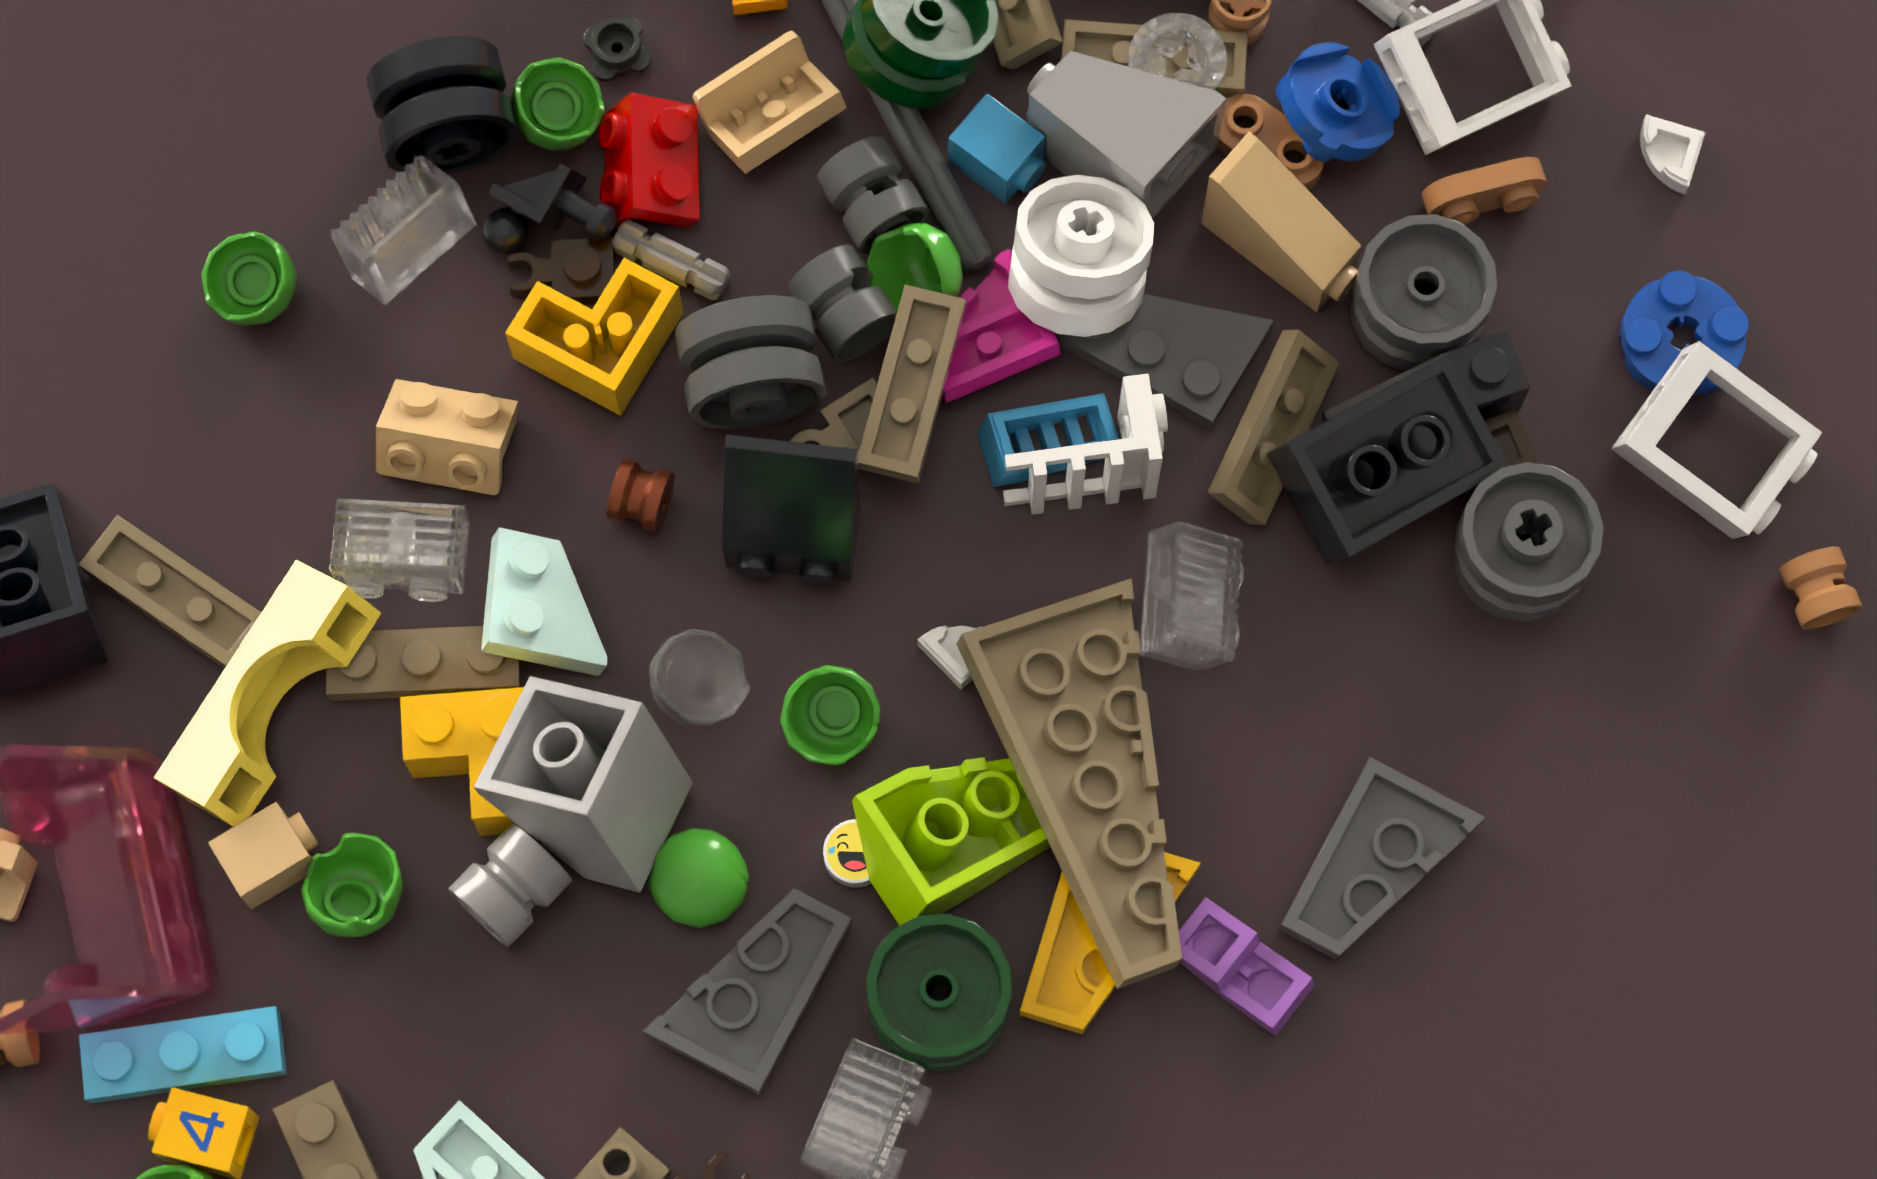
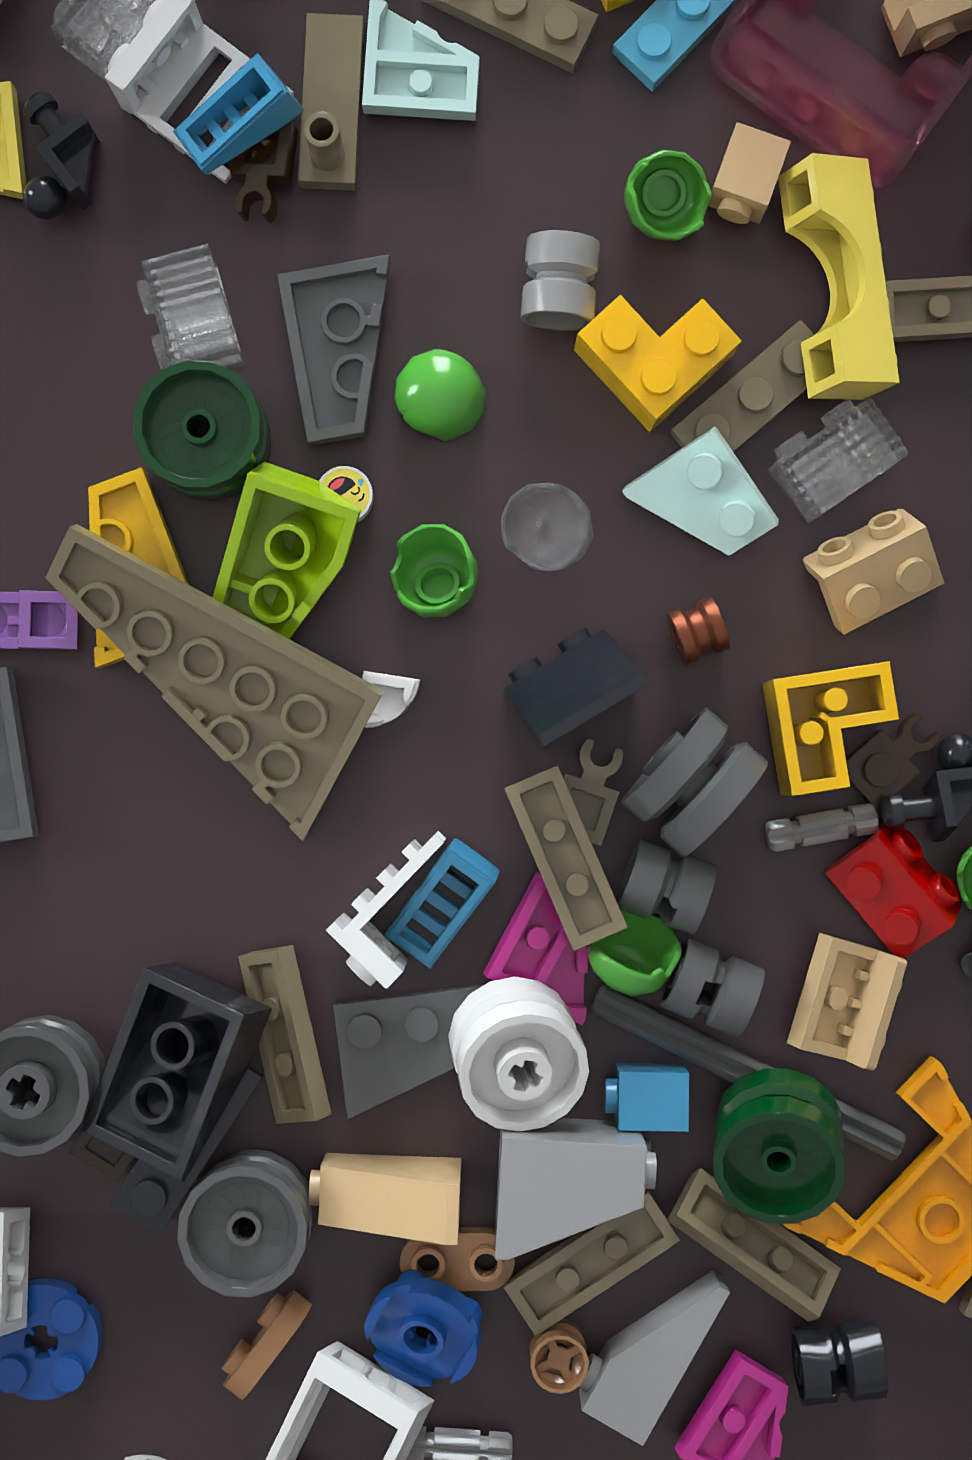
camera: 145 degrees right, 15 degrees up
(587, 780) = (561, 375): light grey slope -> none
(1167, 35) = (591, 1285): clear gear -> none
(1191, 596) = (245, 856): clear brick -> none

